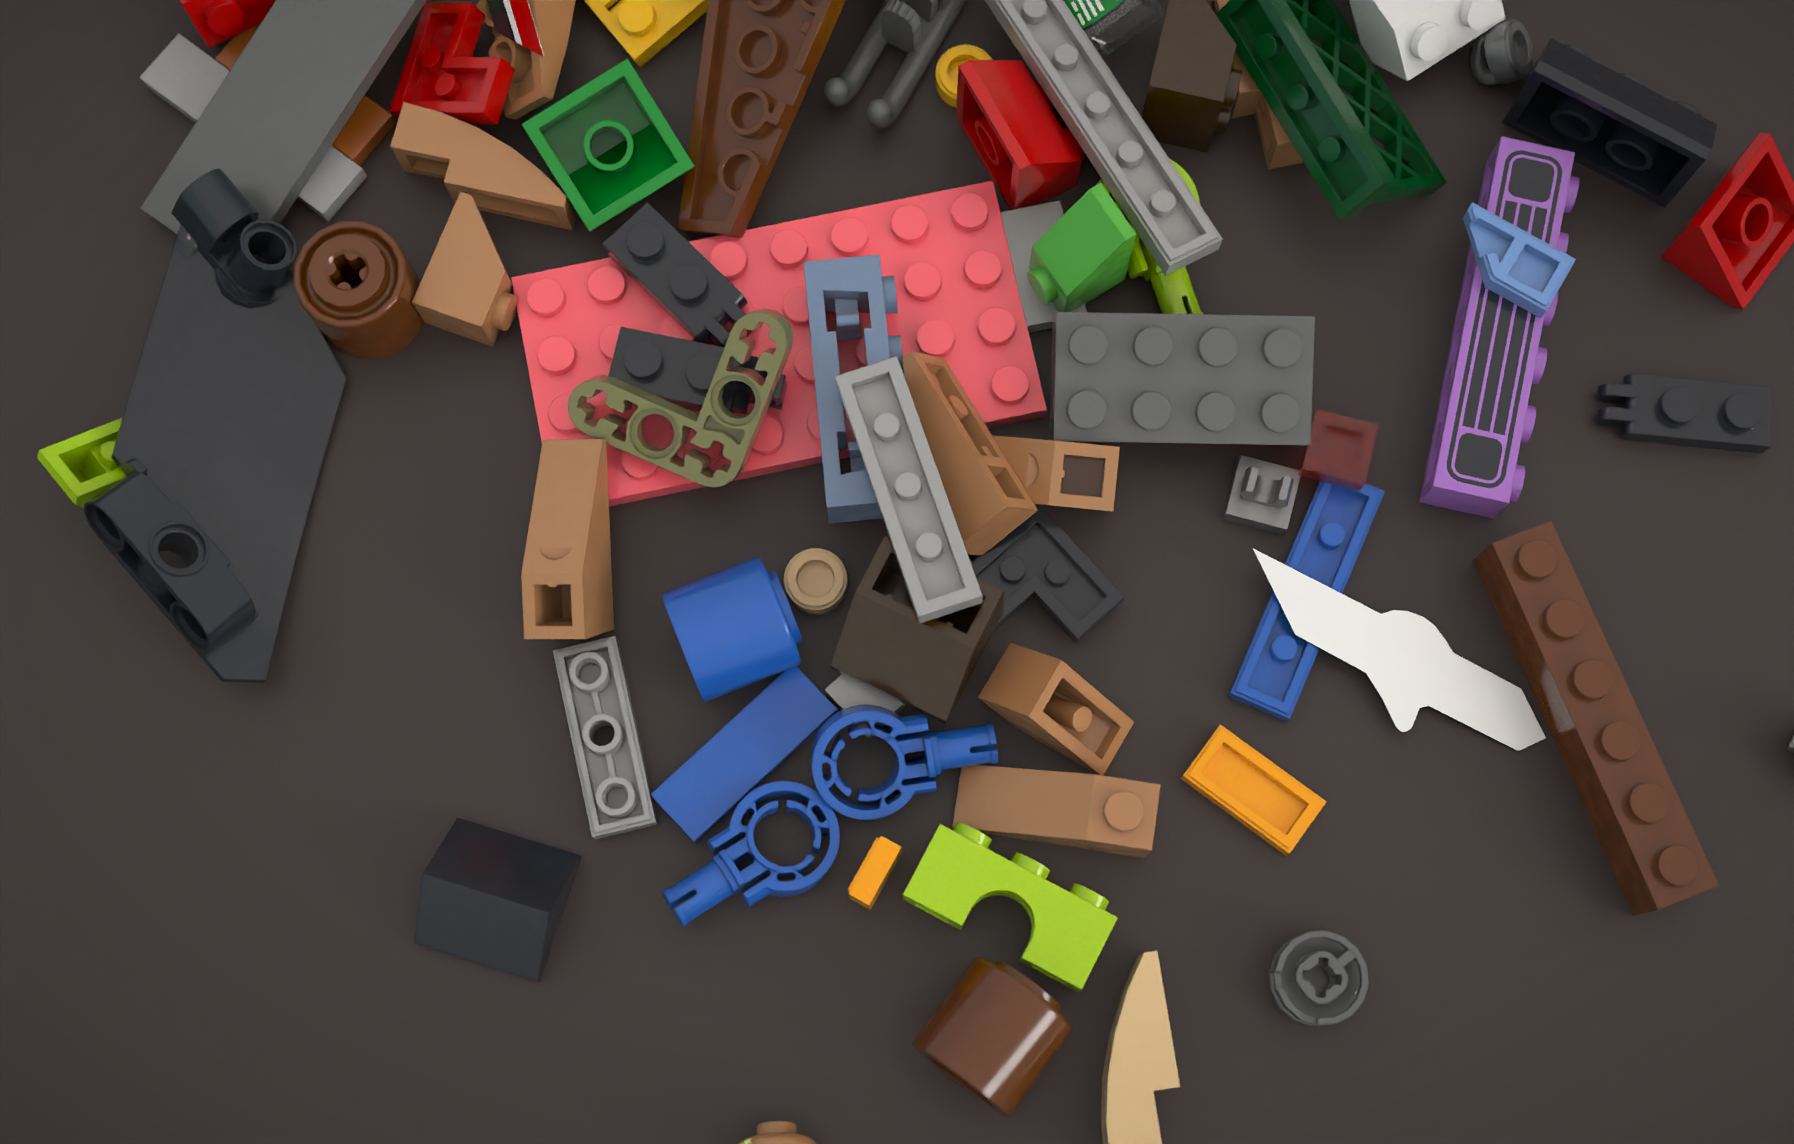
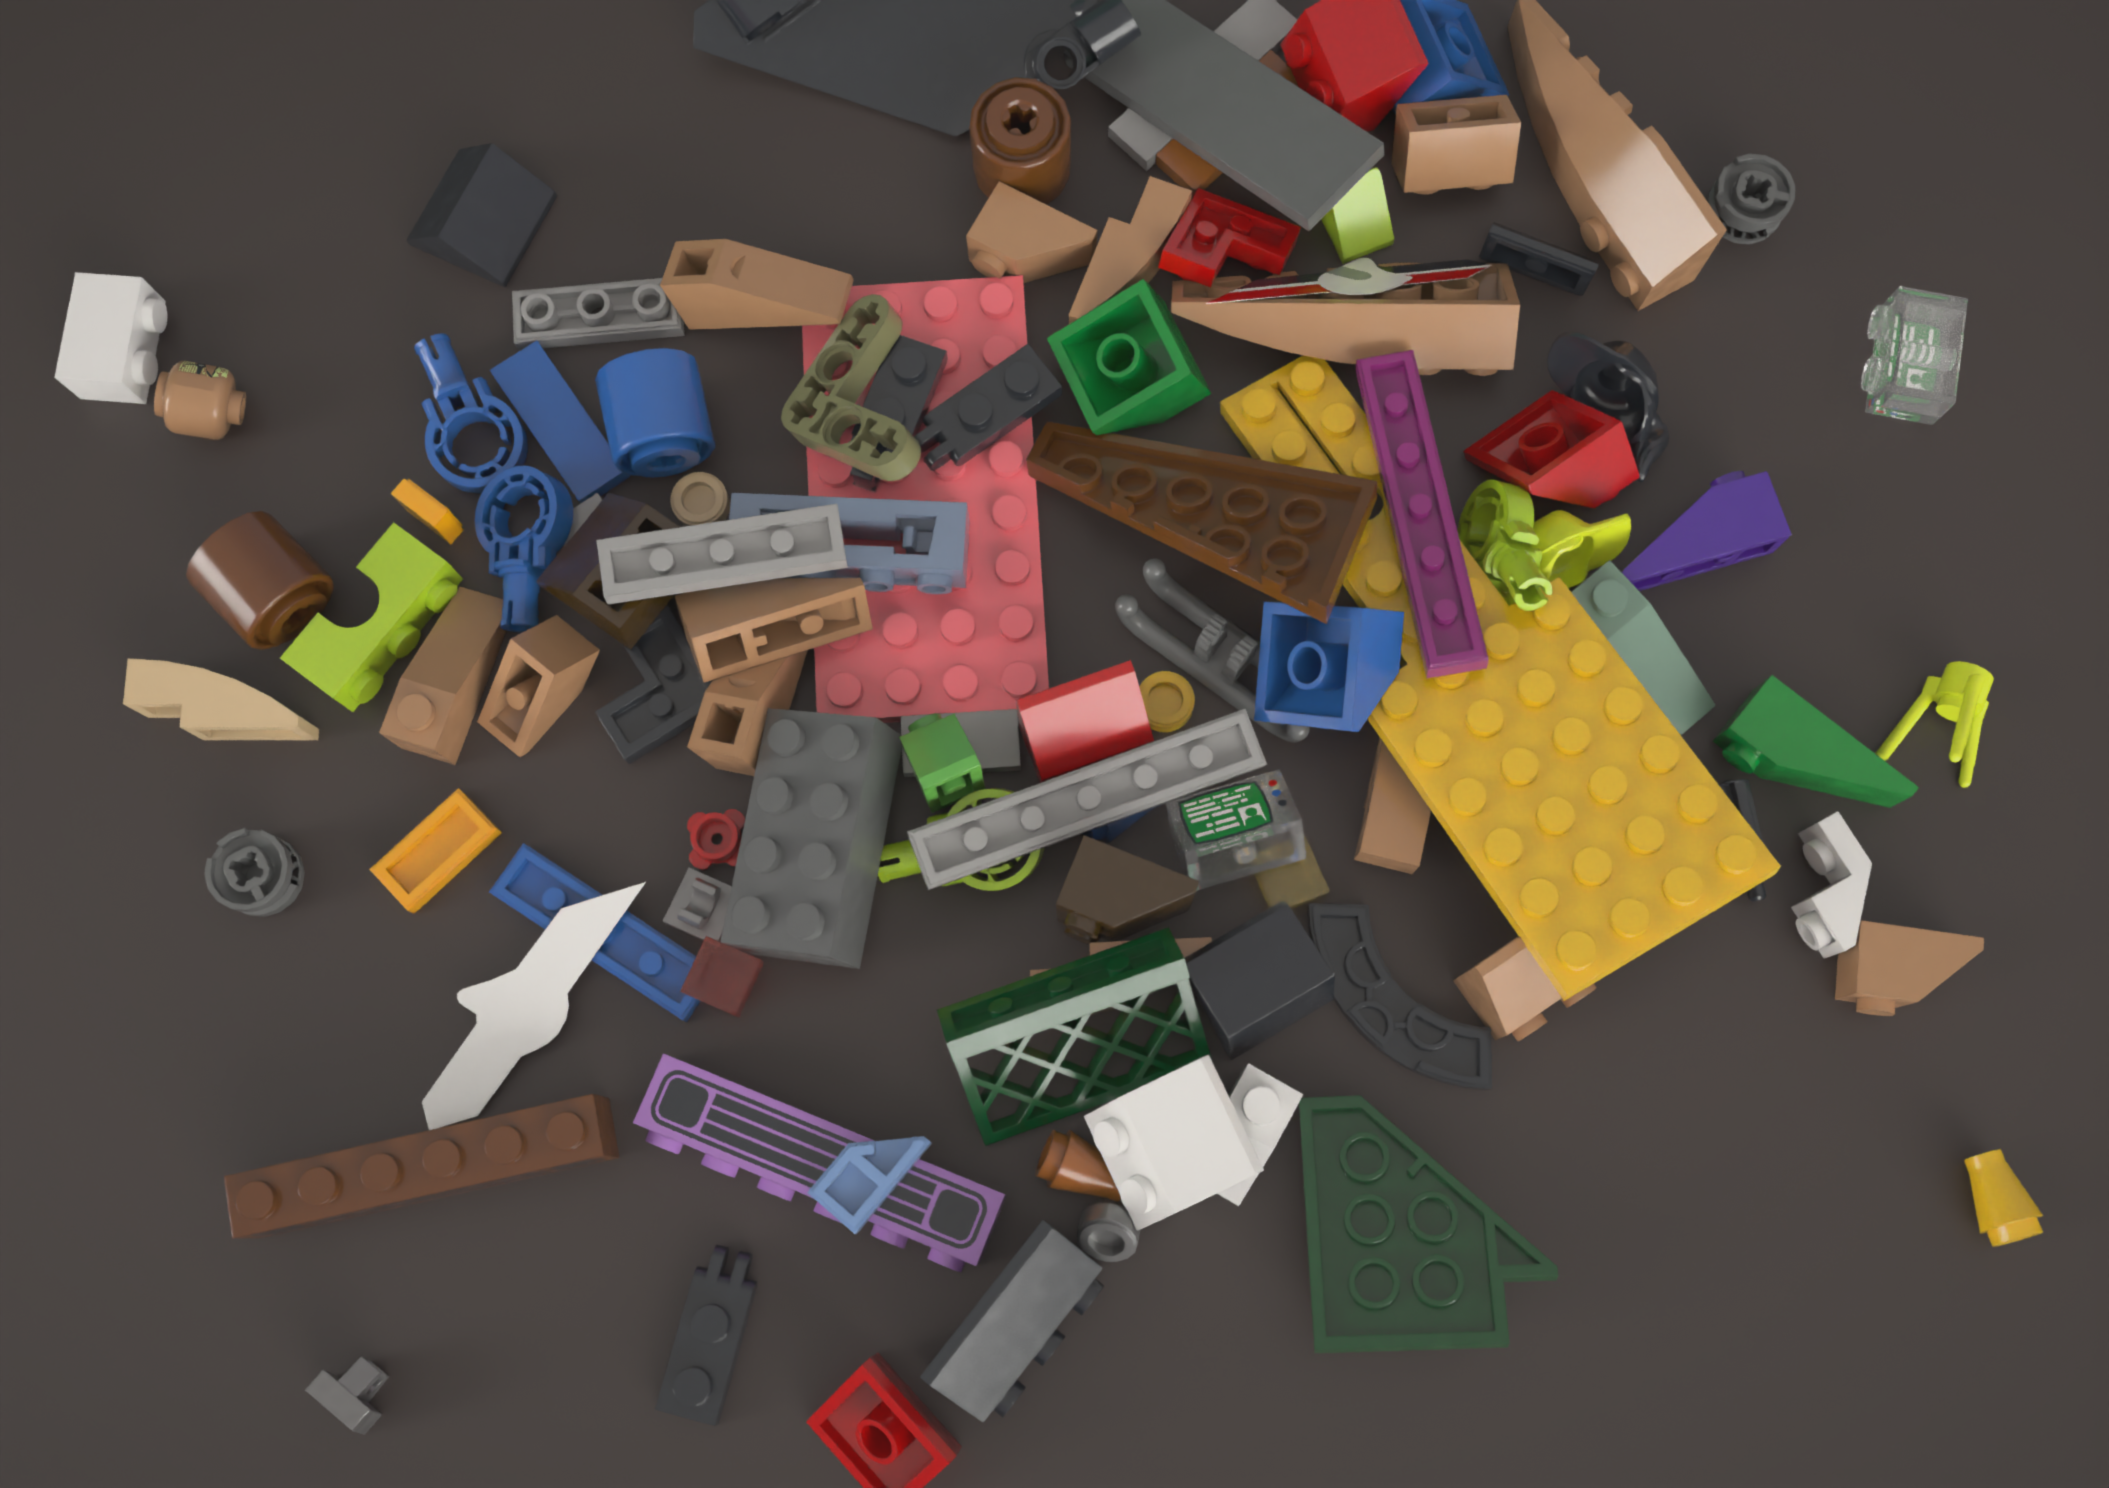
camera: 100 degrees right, 0 degrees up
(1197, 477) = (704, 827): none -> red plate
(1451, 92) = (1075, 1166): none -> dark orange cone

